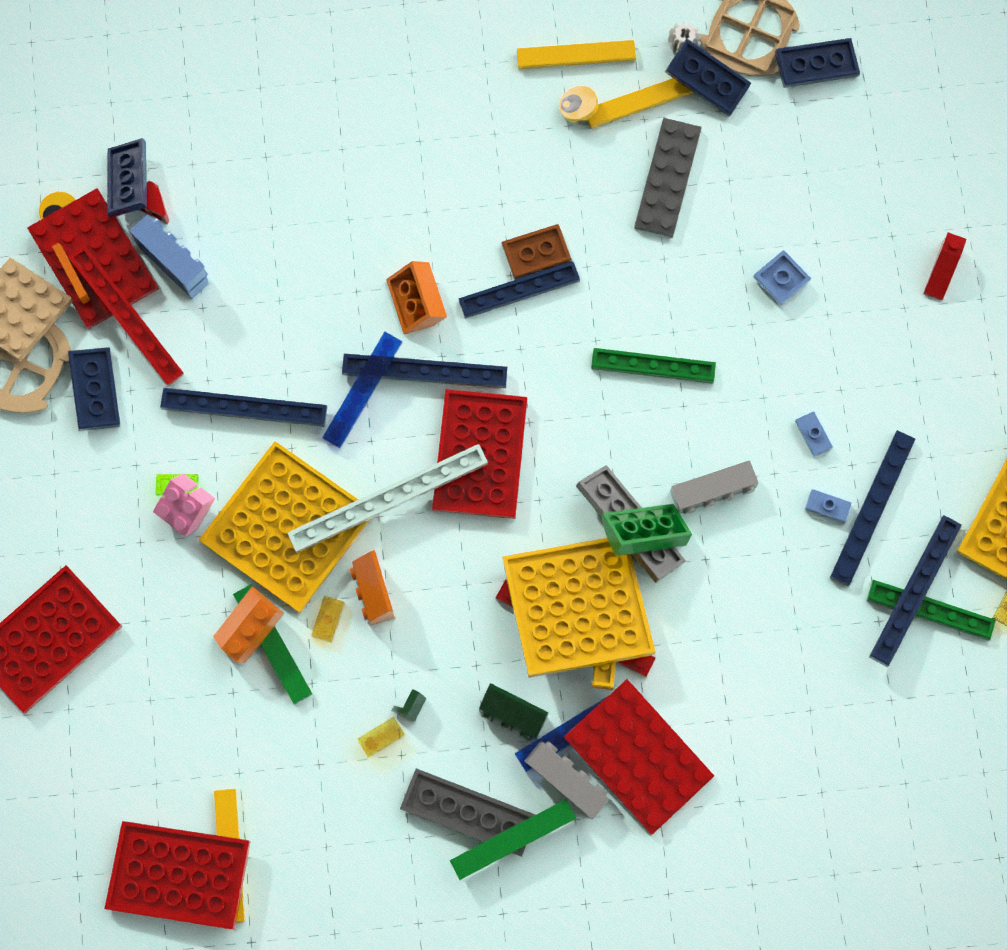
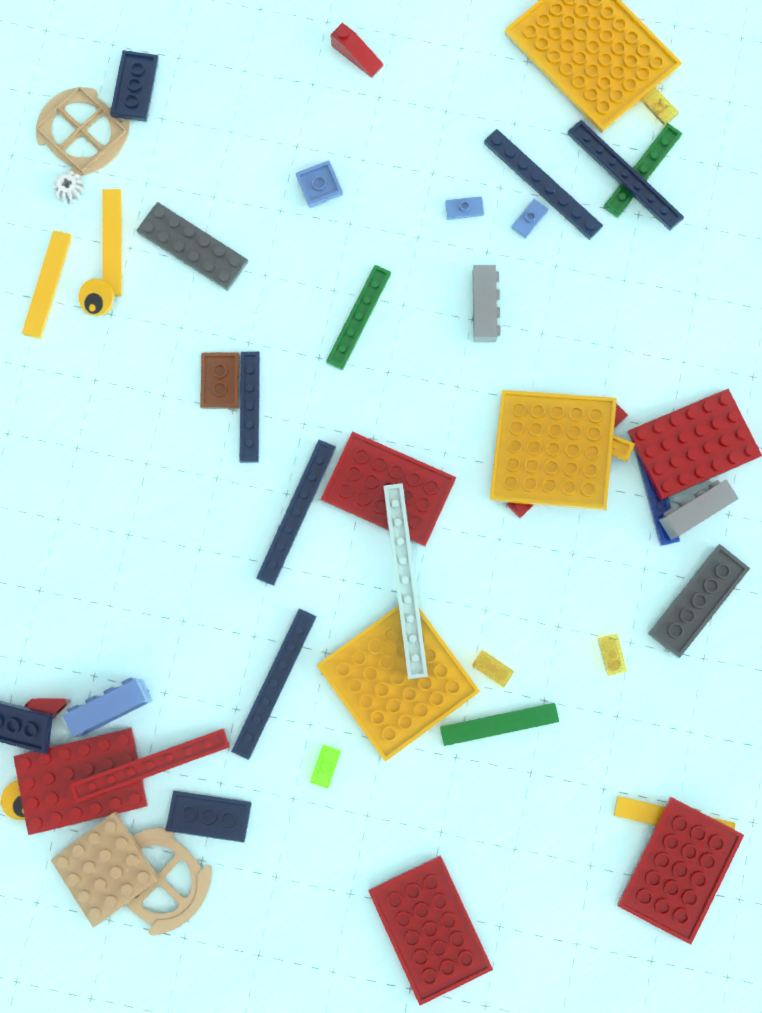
camera: 70 degrees left, 5 degrees up
(71, 273) = (95, 804): orange tile -> none
(182, 510) = (355, 769): bright pink piece -> none
(247, 626) = (478, 741): orange slope -> none
(362, 390) = (296, 572): clear blue plate -> none
(372, 589) = (481, 620): orange slope -> none
(412, 706) = (594, 619): dark green tile -> none
(416, 297) = (225, 497): orange slope -> none
(512, 712) = (628, 535): dark green slope -> none
(512, 839) = (735, 570): green tile -> none
(608, 494) = (494, 382): plate -> none
(645, 529) = (506, 370): green slope -> none
(708, 77) = (114, 179): dark blue tile -> none

